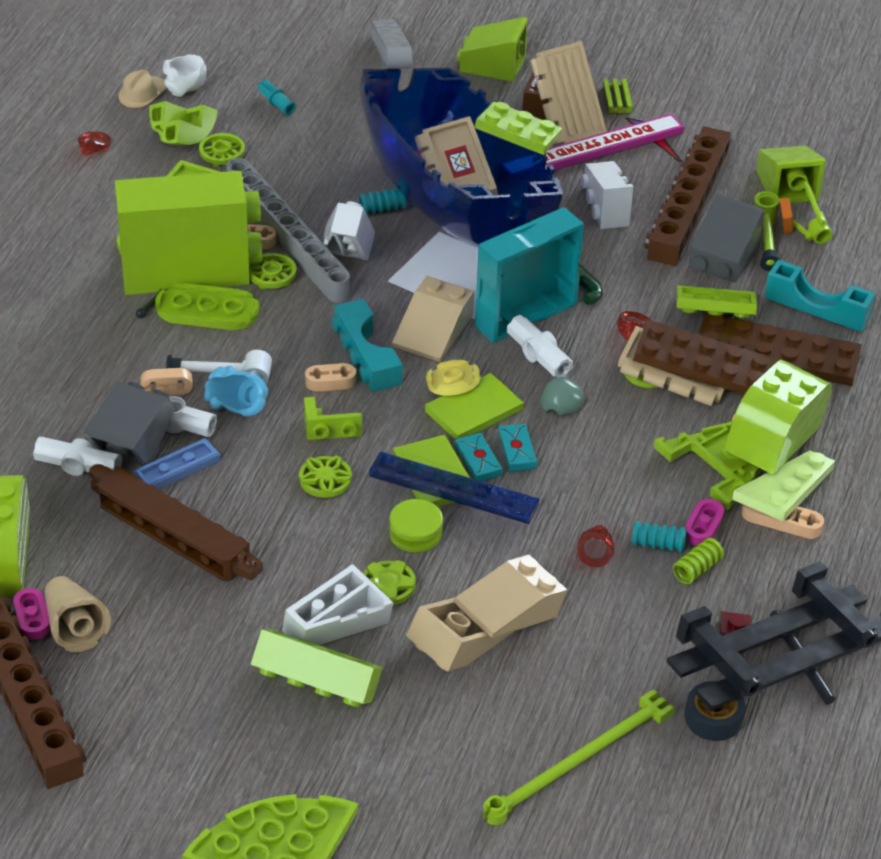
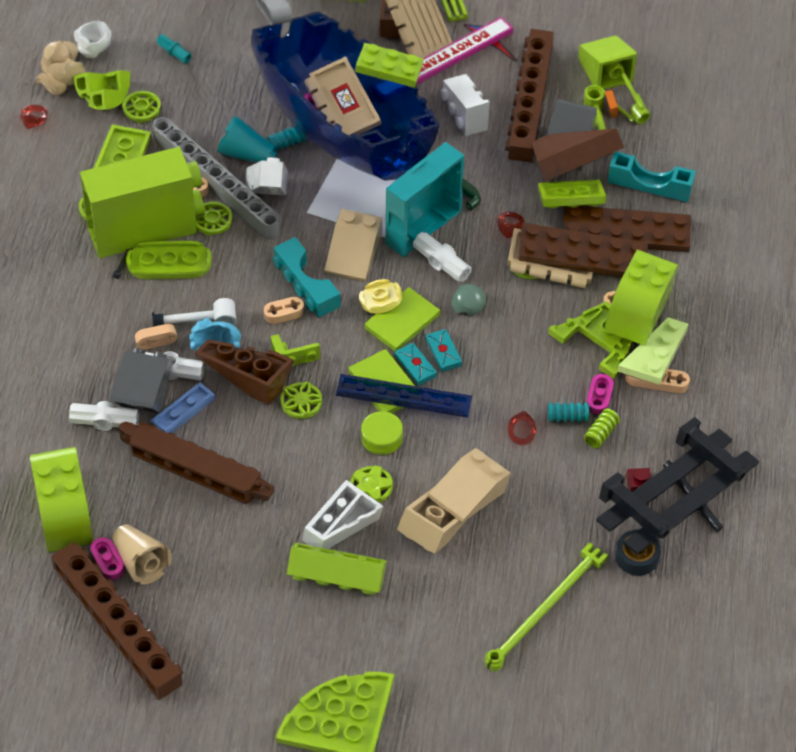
camera: 10 degrees left, 10 degrees up
(135, 104) = (60, 76): none -> tan hair
(272, 435) = (252, 371): none -> reddish brown wedge
(325, 192) = (245, 143): none -> teal cone
(720, 253) = (570, 150): none -> reddish brown wedge

